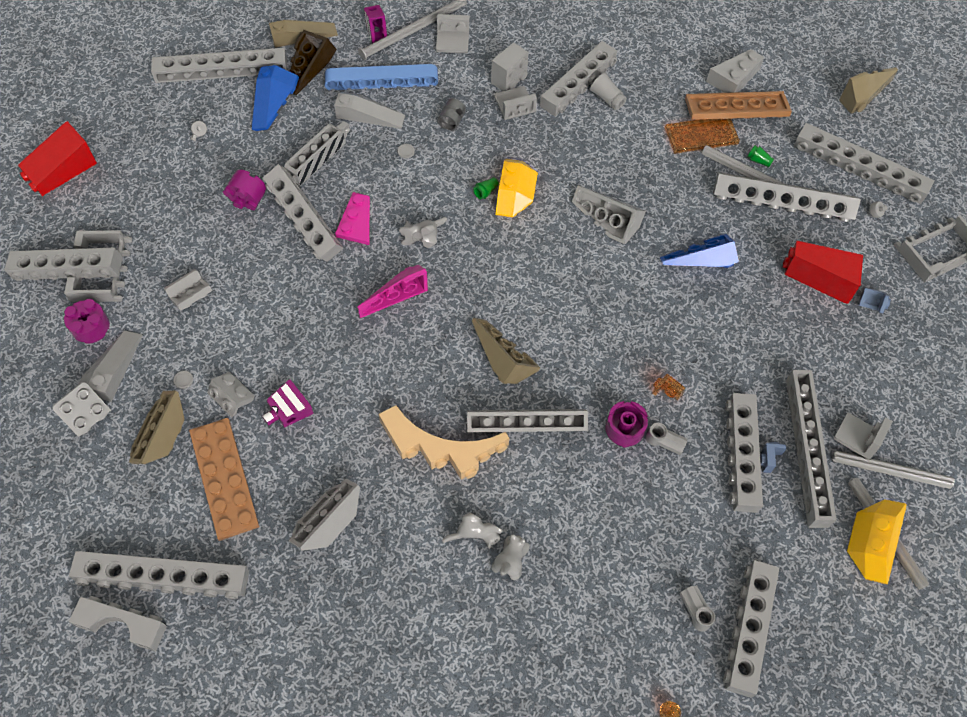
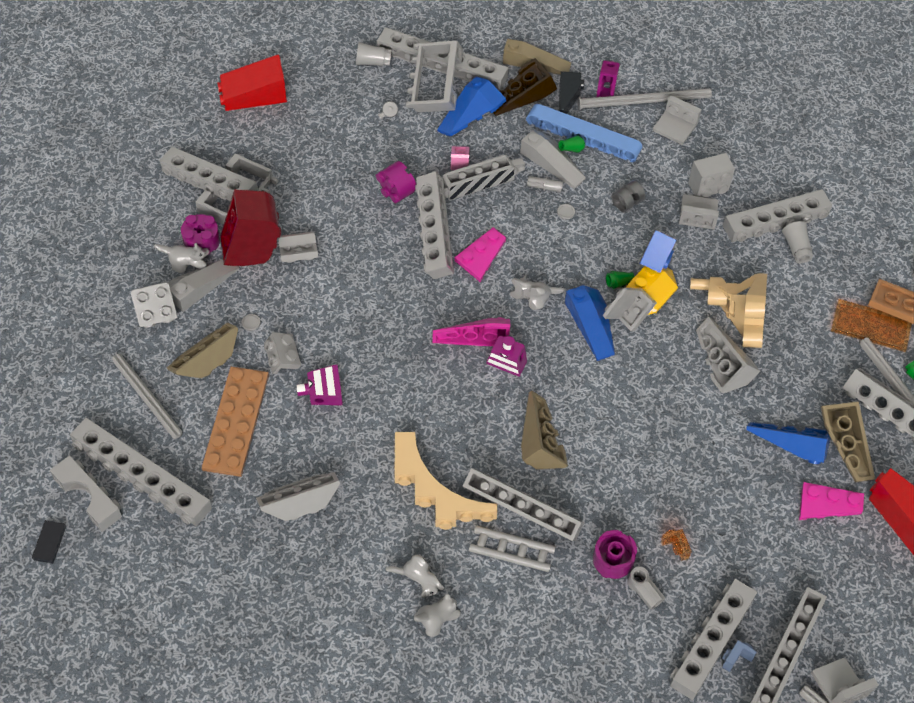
camera: 30 degrees right, 5 degrees down
(82, 349) = (182, 256): none -> light grey animal
(107, 691) = (49, 541): none -> black tile
(123, 498) = (146, 395): none -> light grey axle
(134, 293) = (250, 228): none -> dark red brick
(154, 87) = (372, 55): none -> light grey plant
(212, 55) = (455, 57): none -> light grey hinge
(288, 143) = (459, 157): none -> bright pink slope
(346, 44) = (569, 90): none -> black slope
(375, 135) = (545, 184): none -> light grey axle
(378, 91) = (573, 144): none -> green cone
(434, 297) = (508, 355): none -> magenta torso
(484, 233) = (587, 310): none -> blue wedge
(509, 147) = (658, 252): none -> wedge
(513, 207) = (630, 307): none -> light grey bracket
(532, 474) = (517, 559): none -> light grey bar
(605, 167) = (744, 310): none -> tan connector
(743, 230) = (848, 434): none -> dark tan wedge
(757, 292) = (825, 501): none -> dark pink wing

